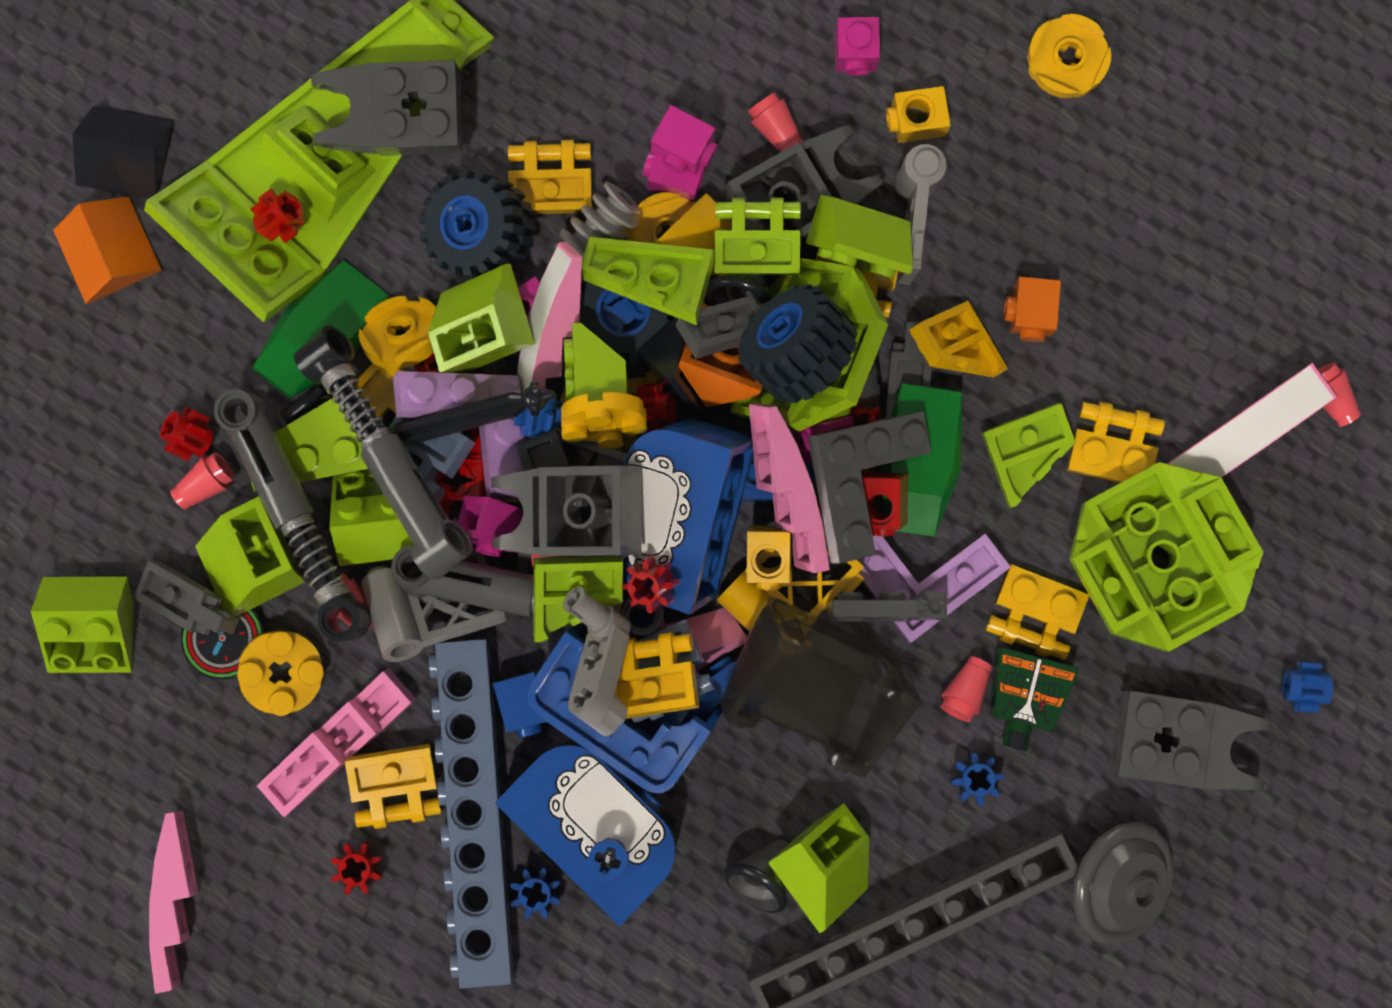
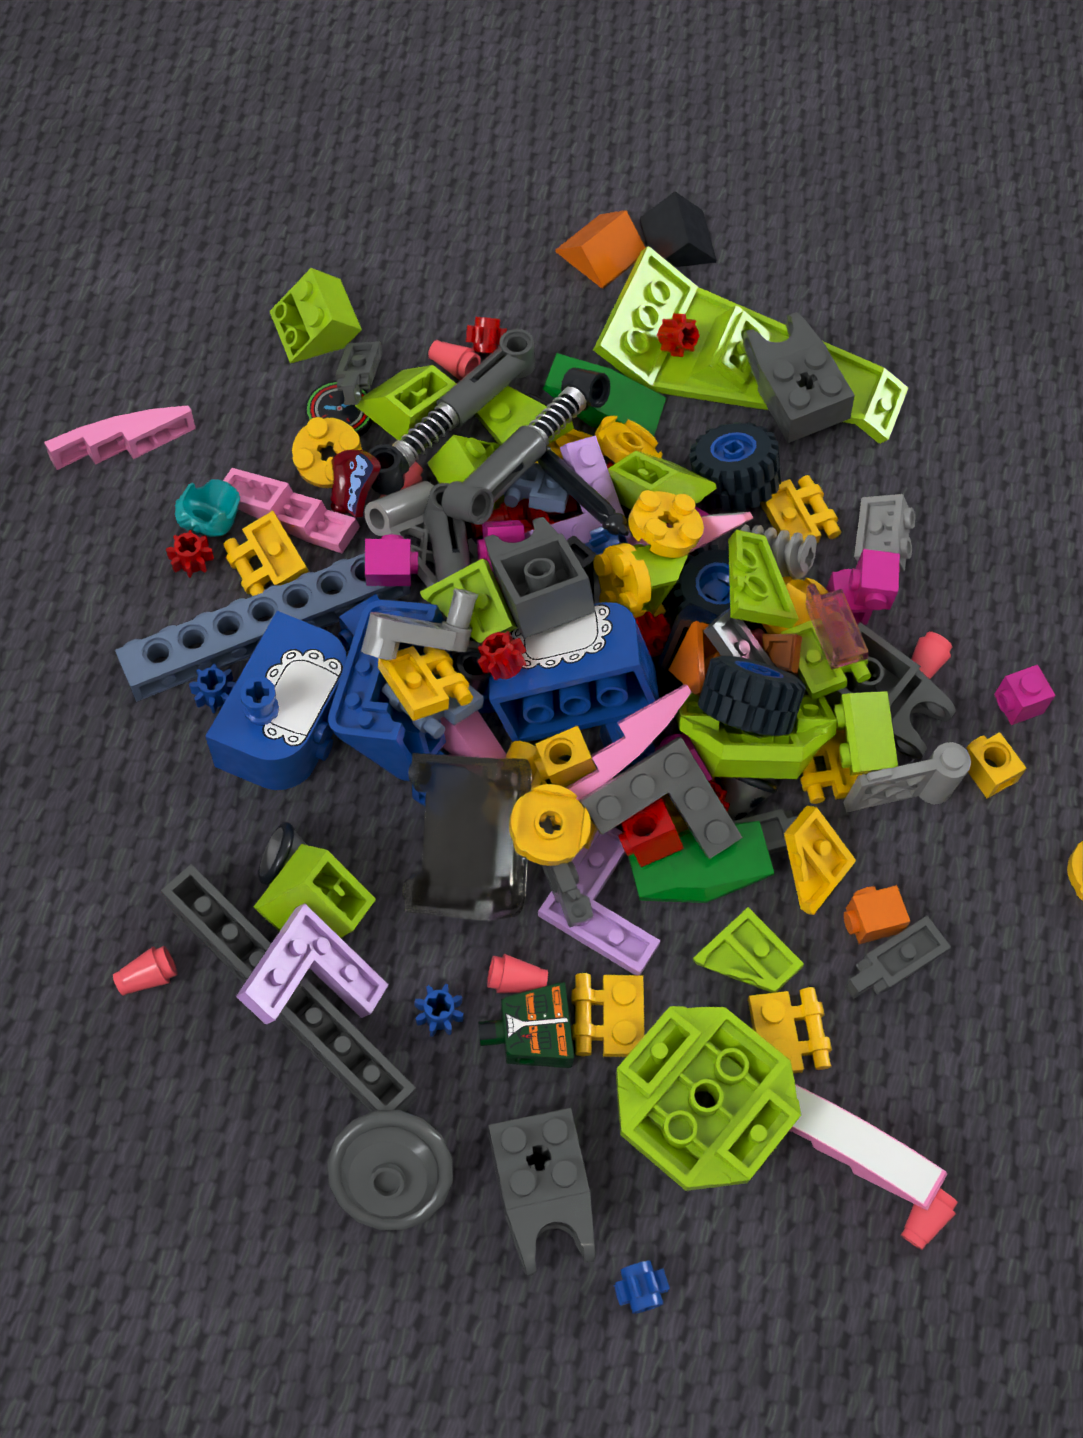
camera: 65 degrees right, 20 degrees down
(310, 831) = (208, 509): none -> teal hair
(342, 660) = (352, 478): none -> dark red arm
(470, 656) = (389, 561): none -> dark pink brick
(548, 322) = (678, 510): none -> yellow plate
(608, 97) = (885, 526): none -> light grey bracket
(739, 280) = (783, 650): none -> dark orange tile
(740, 215) = (835, 627): none -> clear pink panel
(874, 596) = (533, 841): none -> yellow plate
(881, 899) = (311, 944): none -> lavender plate
(1084, 306) = (898, 958): none -> dark grey hinge

